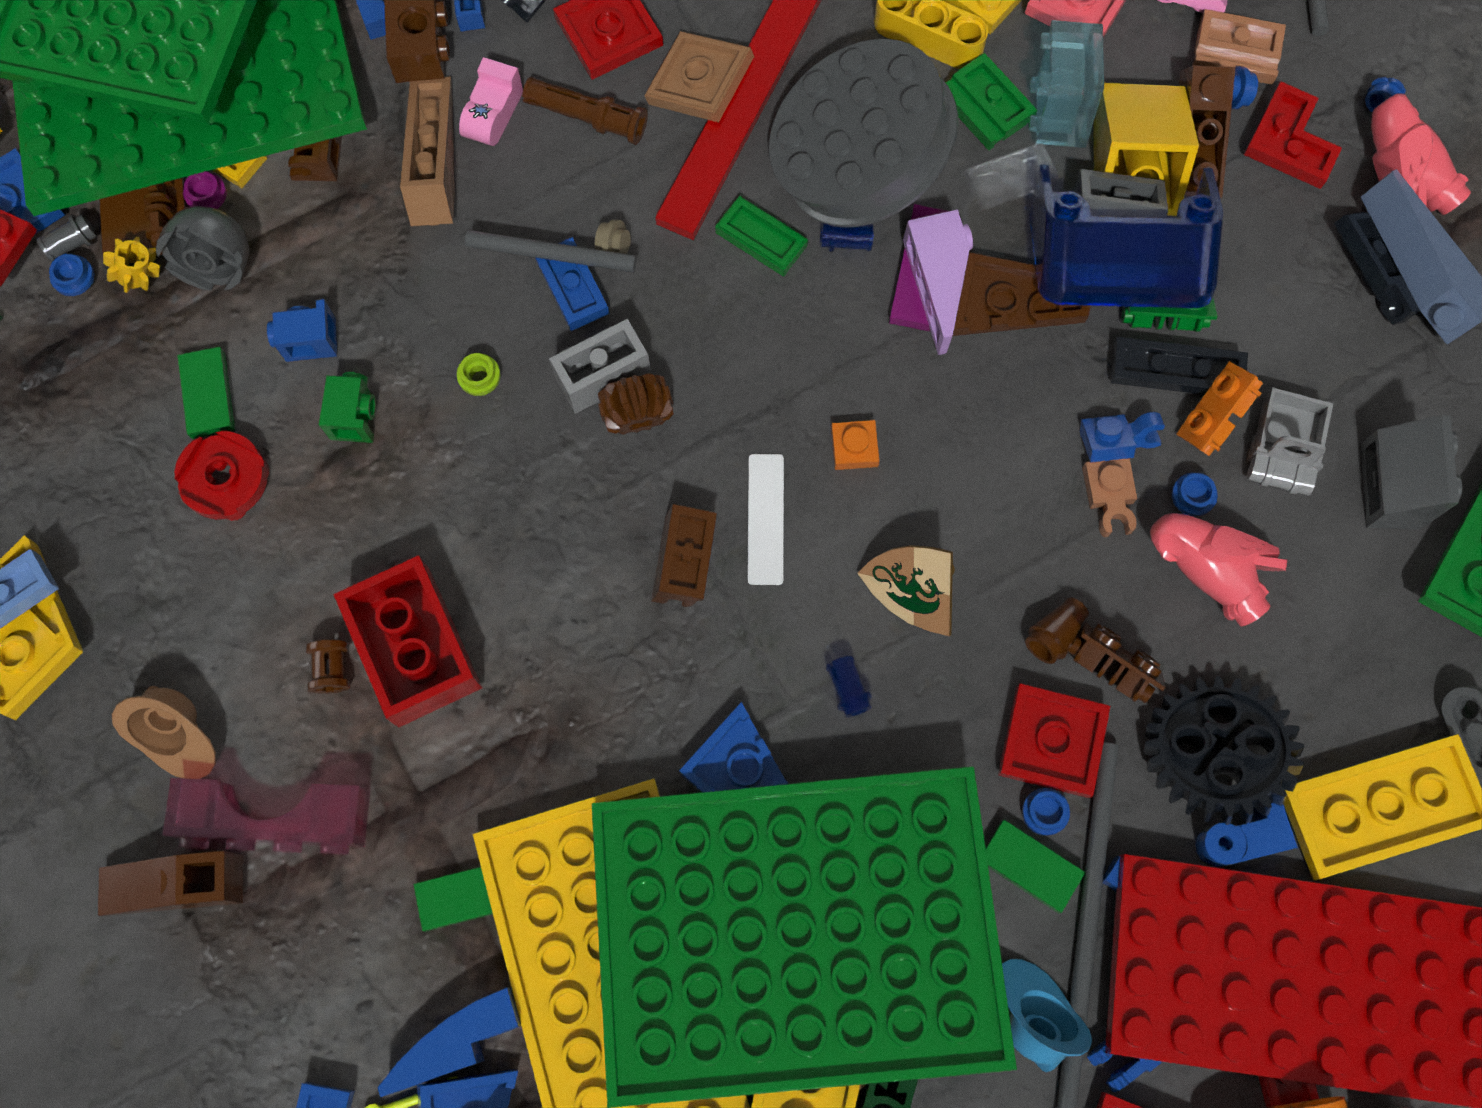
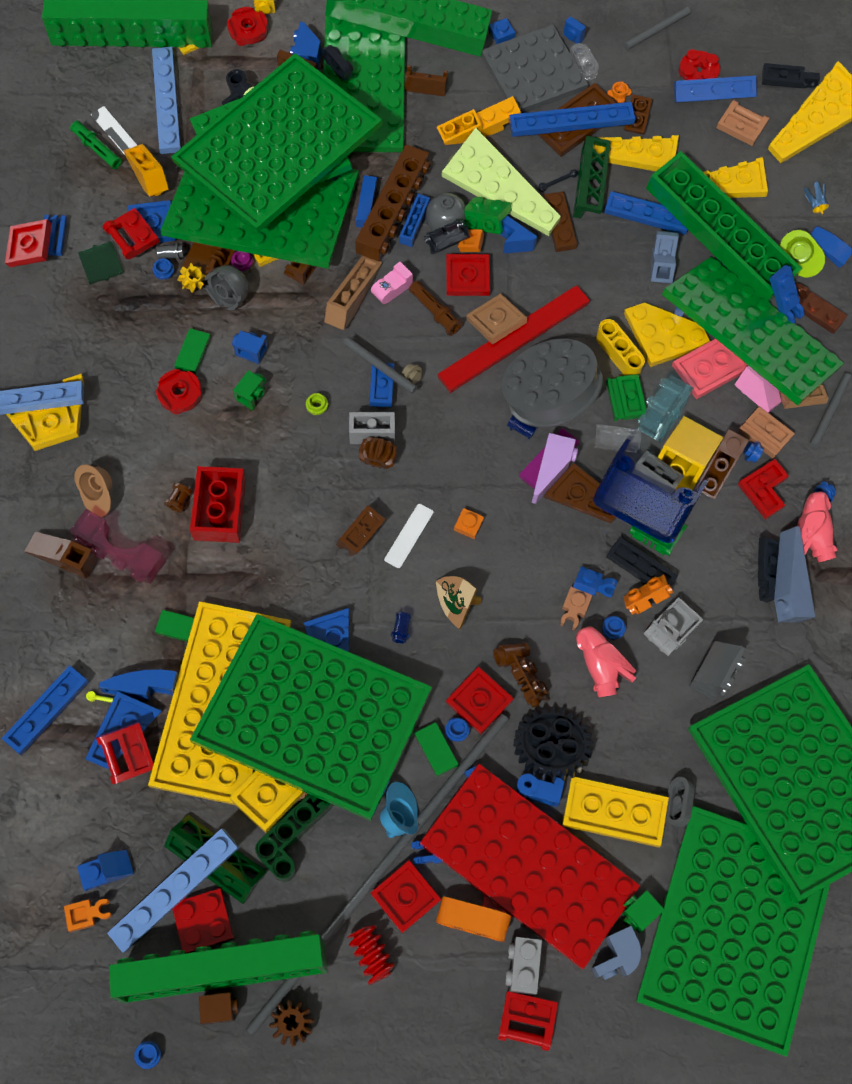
camera: 25 degrees right, 5 degrees down
(761, 236) = (482, 407): green tile -> none

